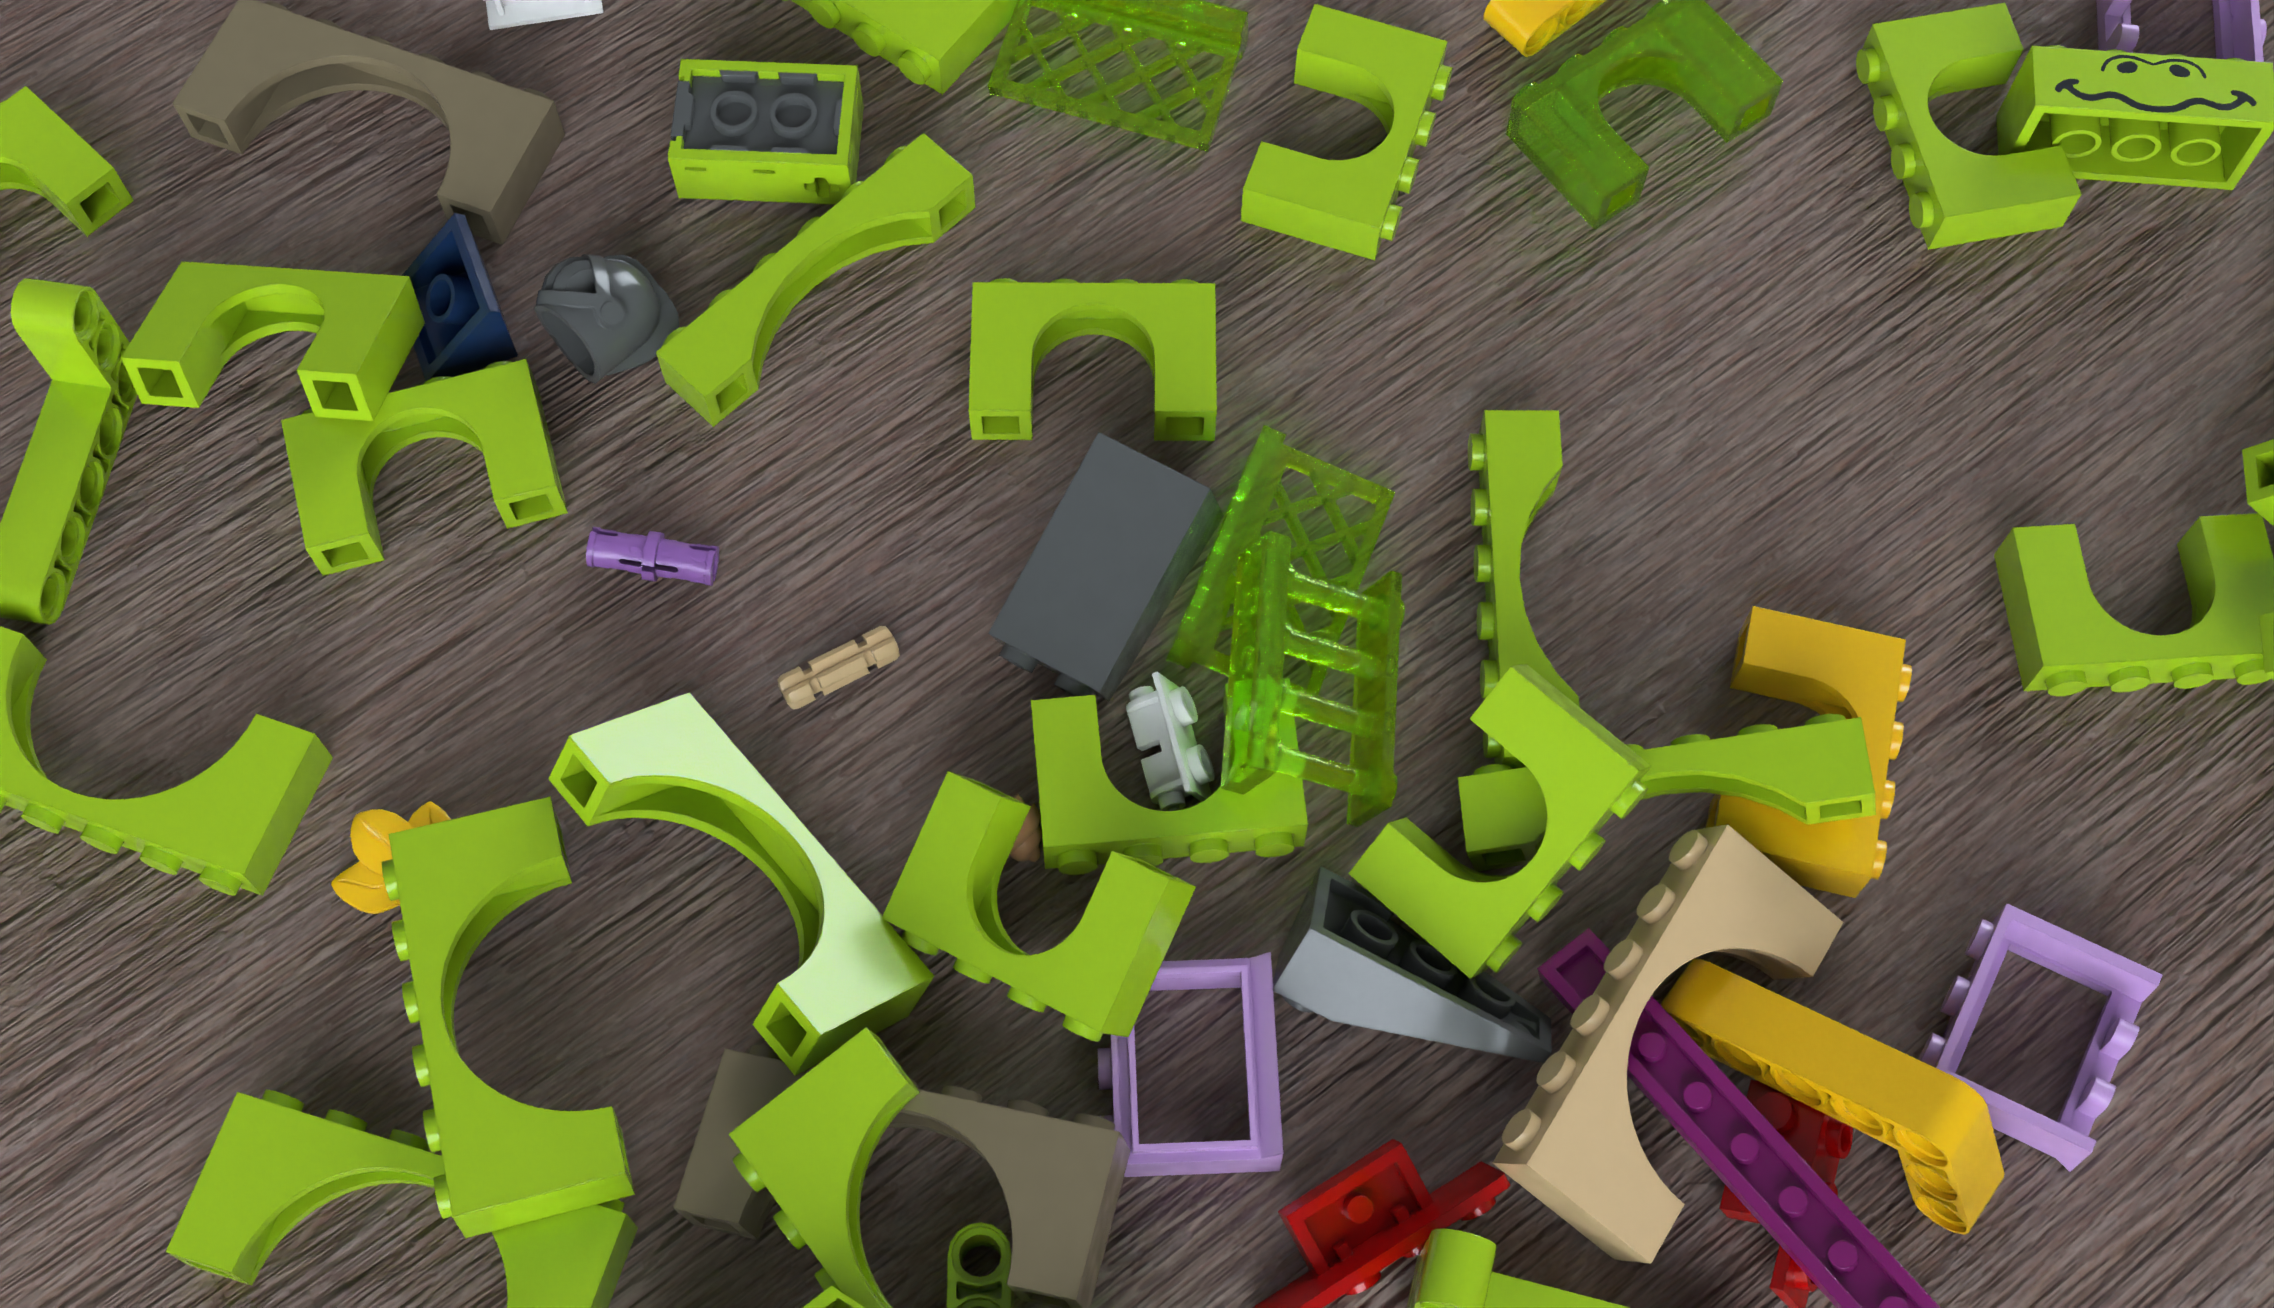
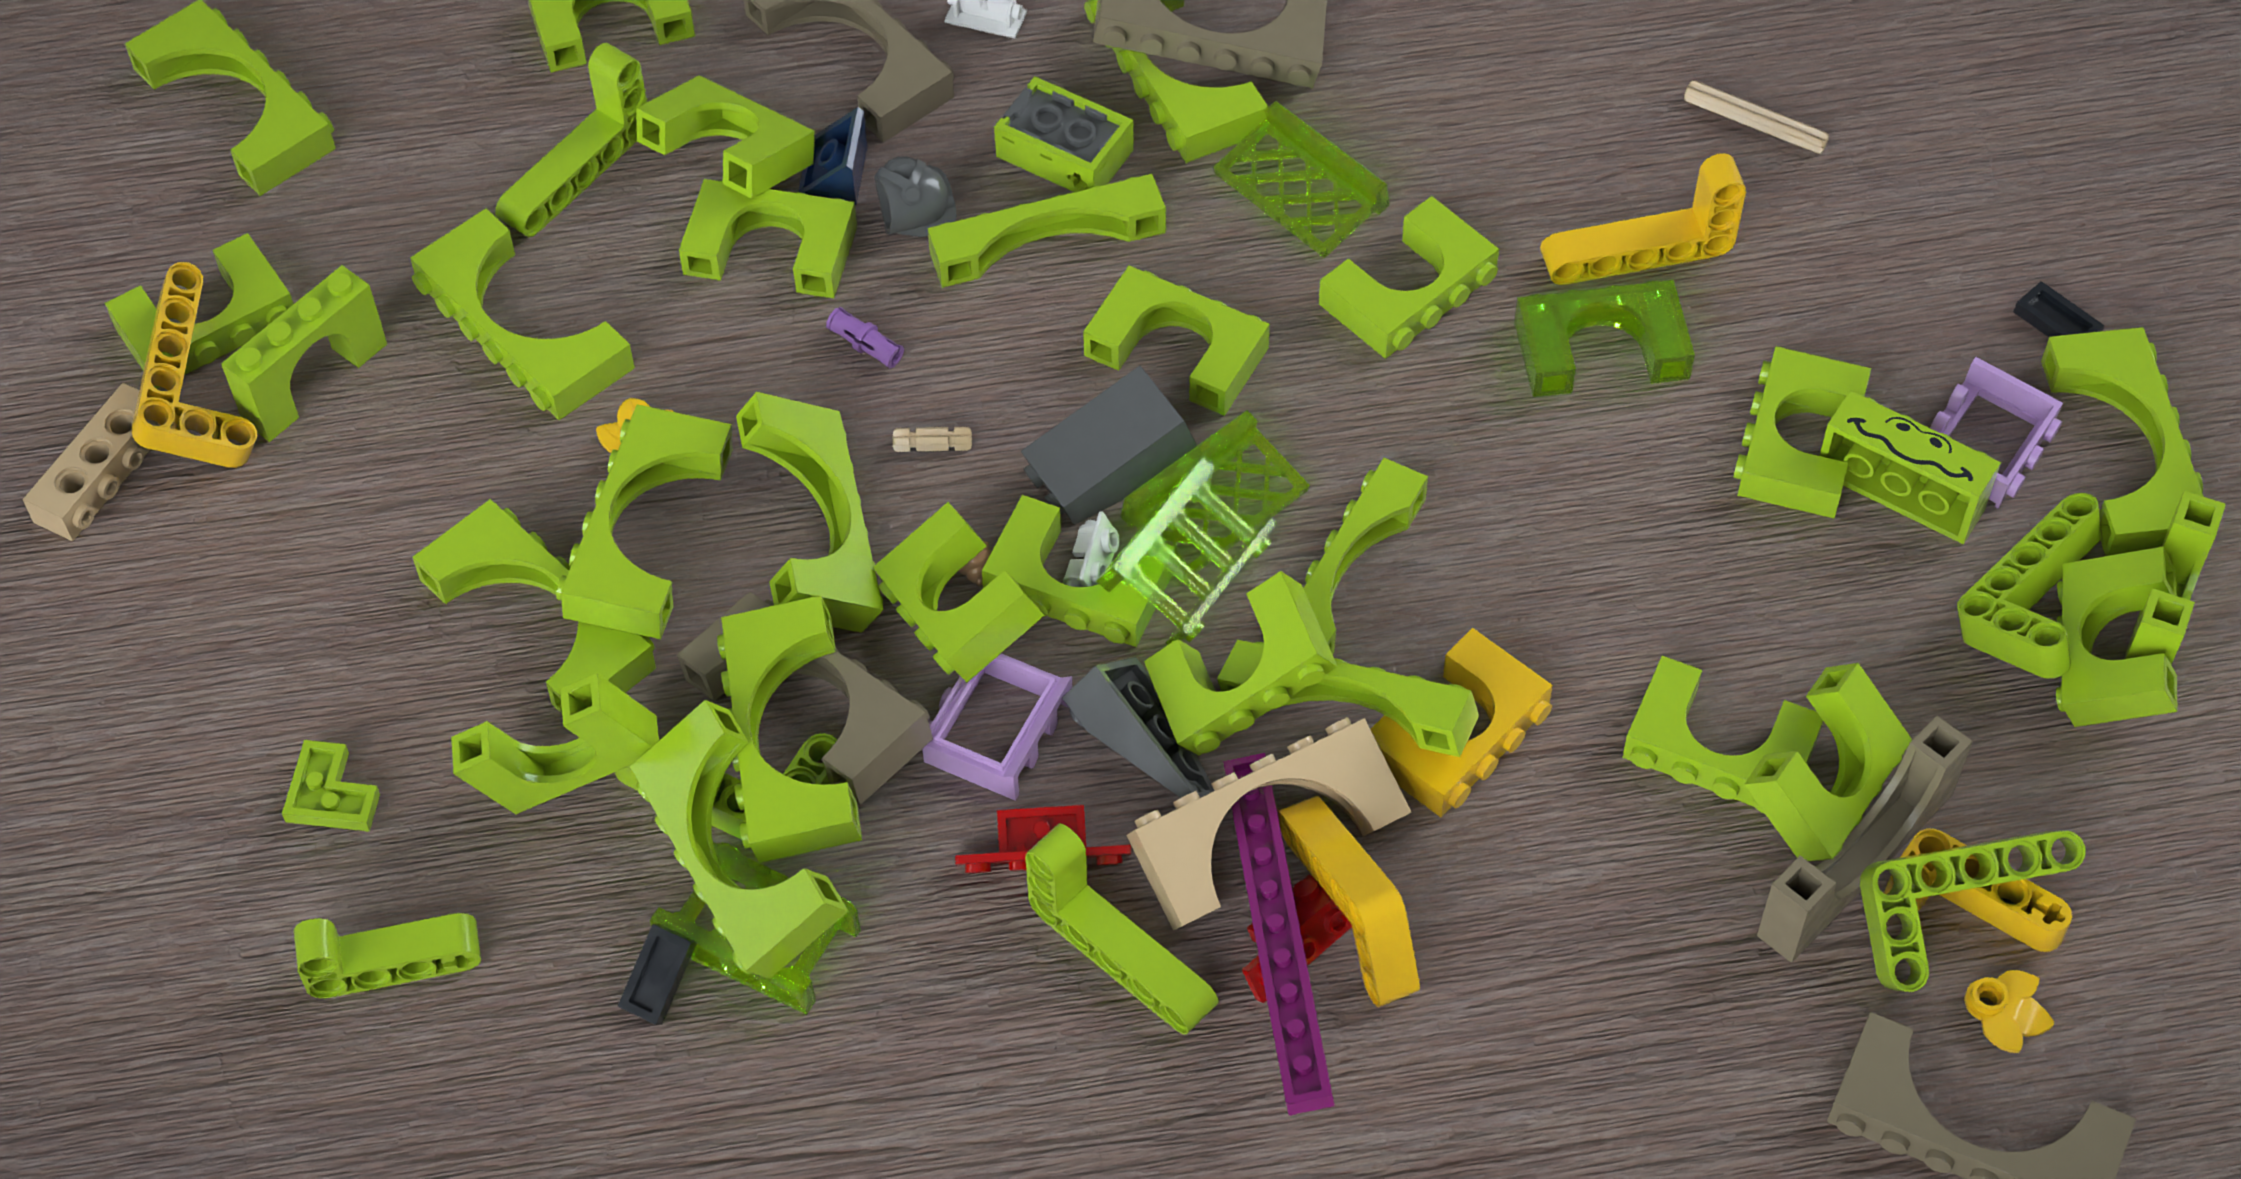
camera: 30 degrees right, 10 degrees down
(2080, 960) = (1471, 889): lavender window -> none

